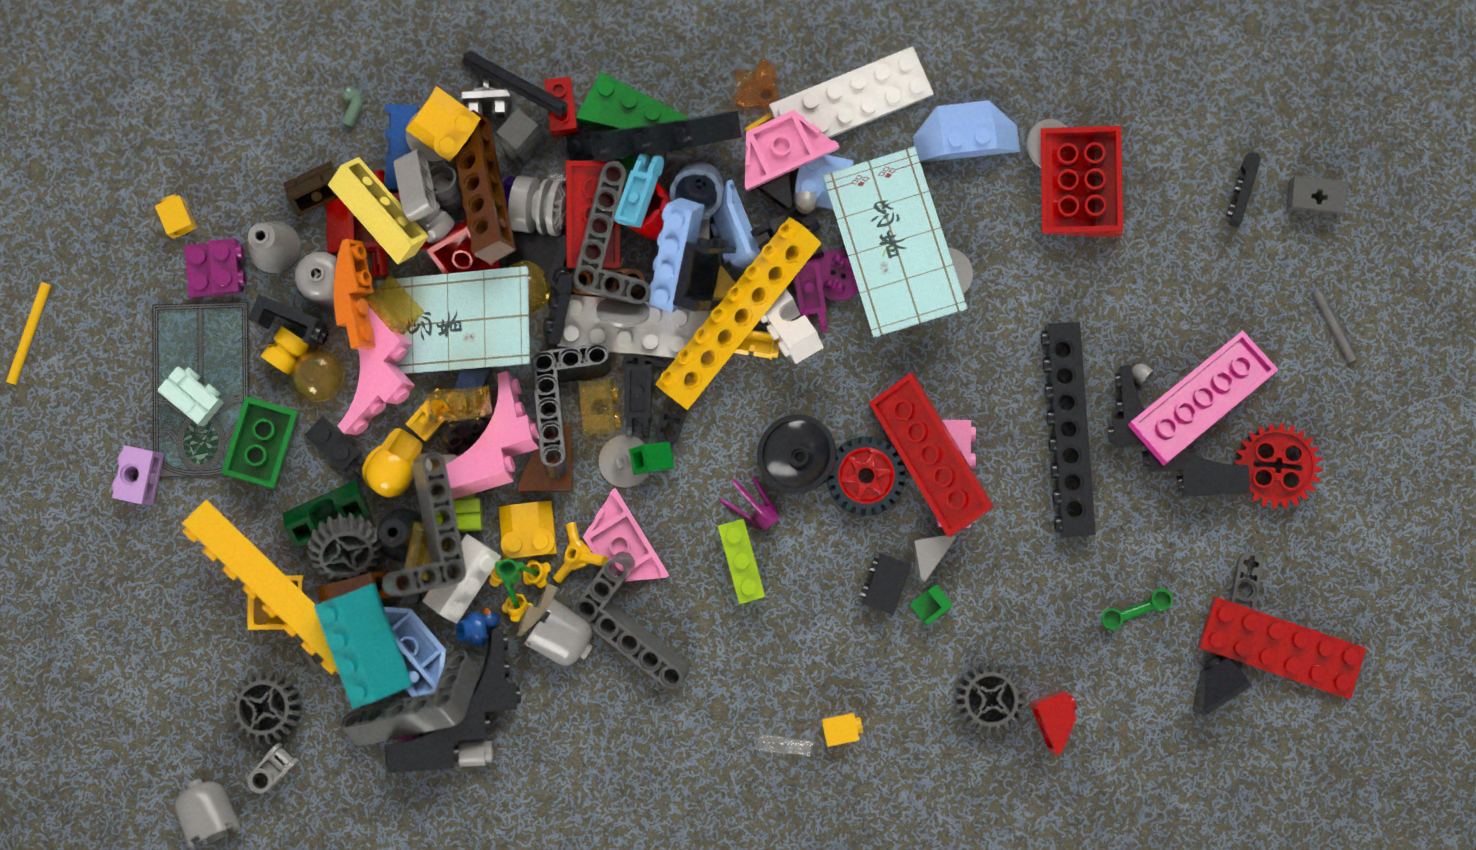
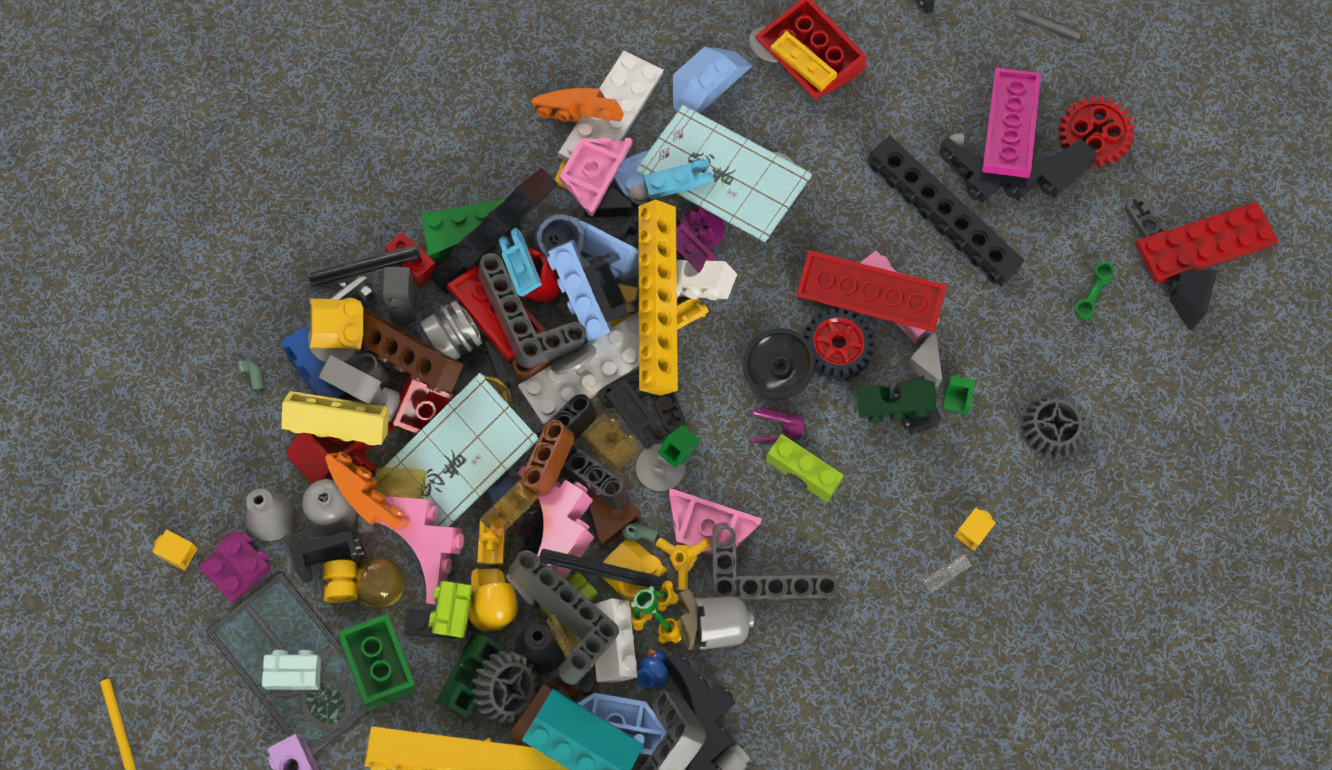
camera: 45 degrees left, 15 degrees down
(311, 189) = (269, 448): dark brown brick -> none
(351, 448) = (452, 608): none -> lime brick
(493, 515) = (600, 569): none -> black axle
(538, 385) = (545, 468): none -> dark orange beam
(558, 305) = (523, 390): black hinge -> none
(560, 502) = (637, 531): none -> sand green arm
(754, 83) = (535, 151): clear orange plate -> none
(819, 70) = (572, 103): none -> orange slope
(846, 215) = (677, 179): none -> medium azure hinge
(851, 557) = (917, 398): none -> dark green arch
(1055, 718) = (1112, 401): red slope -> none
(1061, 189) = (804, 61): none -> yellow tile

